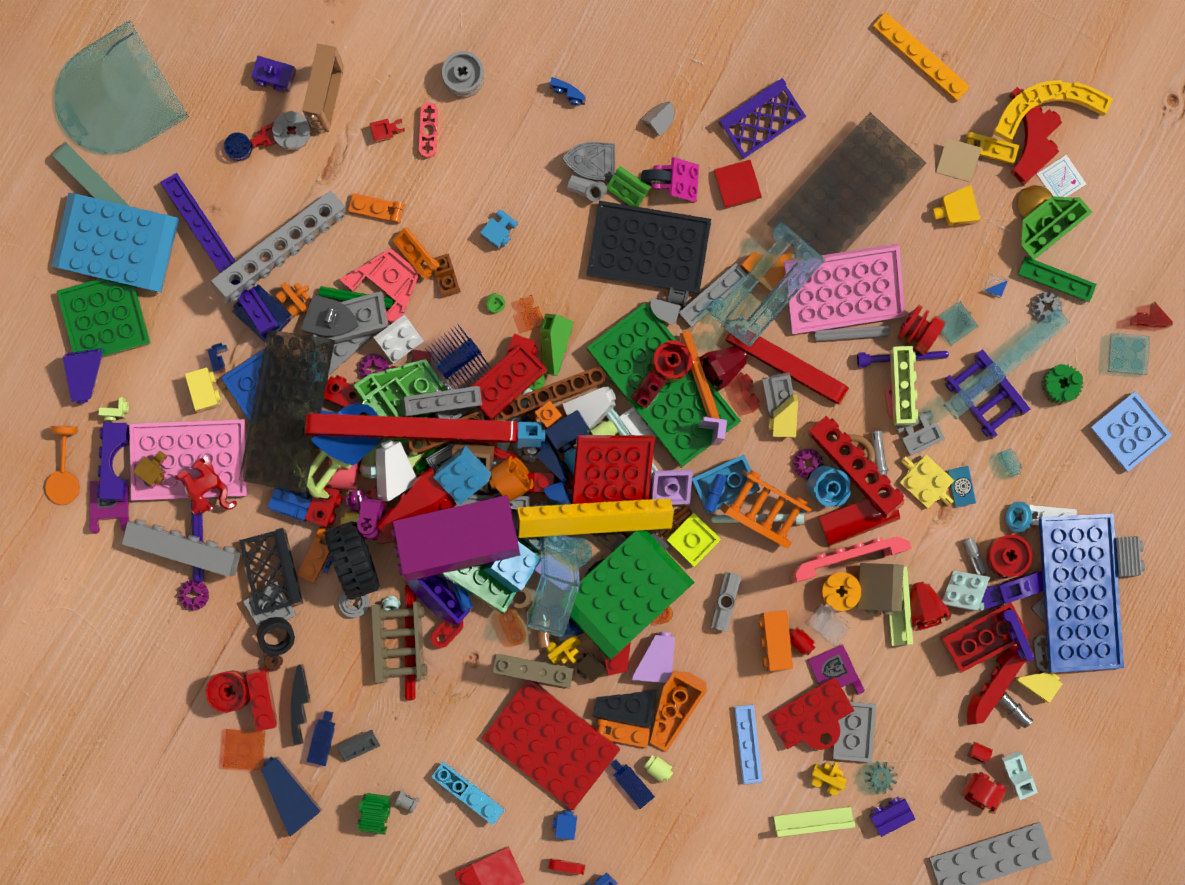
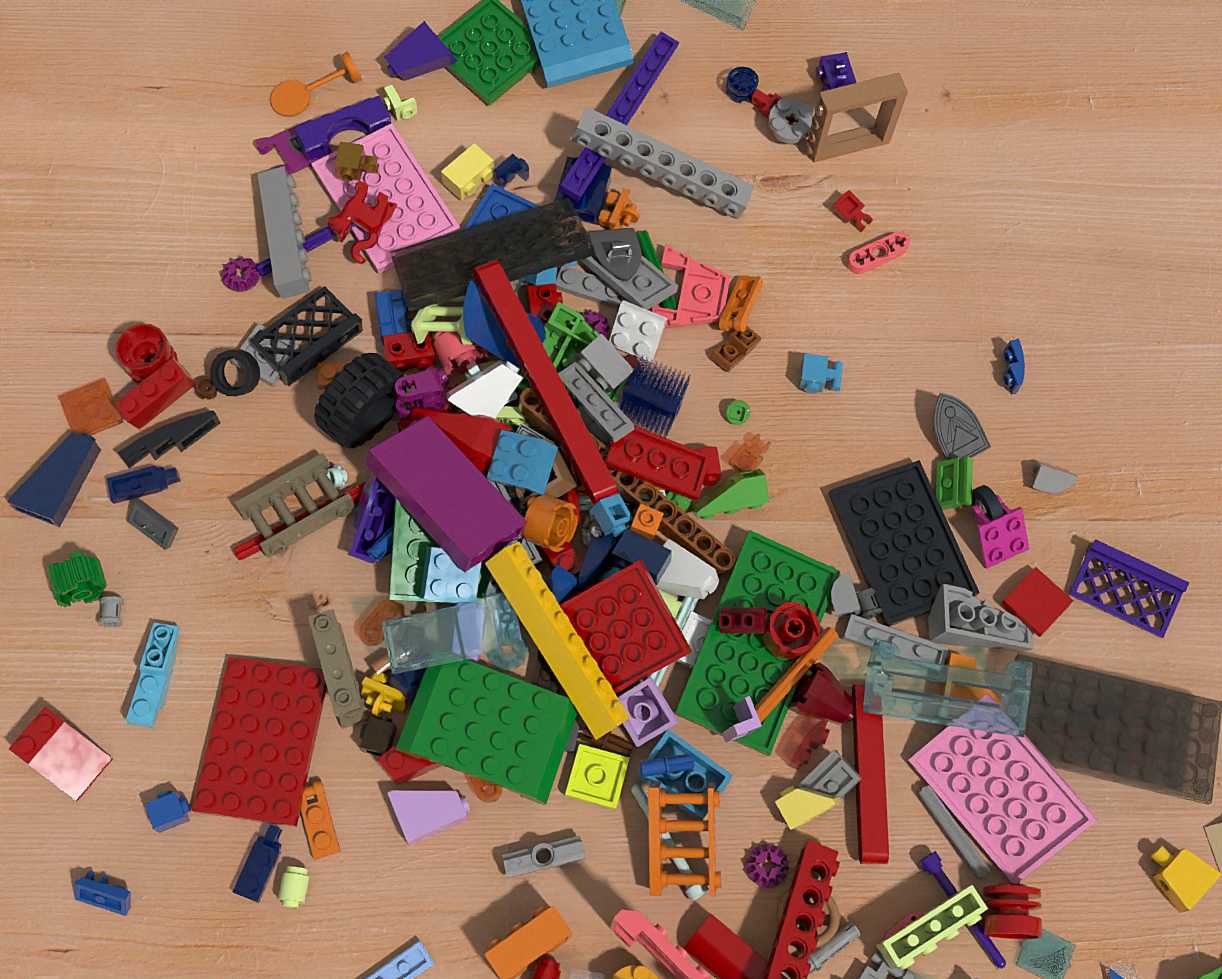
camera: 55 degrees right, 15 degrees down
(353, 611) = (307, 441): light grey gear -> none
(375, 208) = (763, 243): orange plate -> none
(417, 378) = (604, 363): none -> light grey brick
(447, 631) = (337, 553): red plate -> none
(463, 85) = (960, 252): light grey wheel -> none
(566, 866) = (117, 839): red beam -> none
(585, 187) = (925, 439): light grey piece -> none
(627, 708) = (350, 809): black wing -> none
(677, 702) = (387, 863): orange wedge -> none
(726, 237) = (967, 621): none -> light grey wedge
(829, 476) = (766, 914): dark azure brick -> none

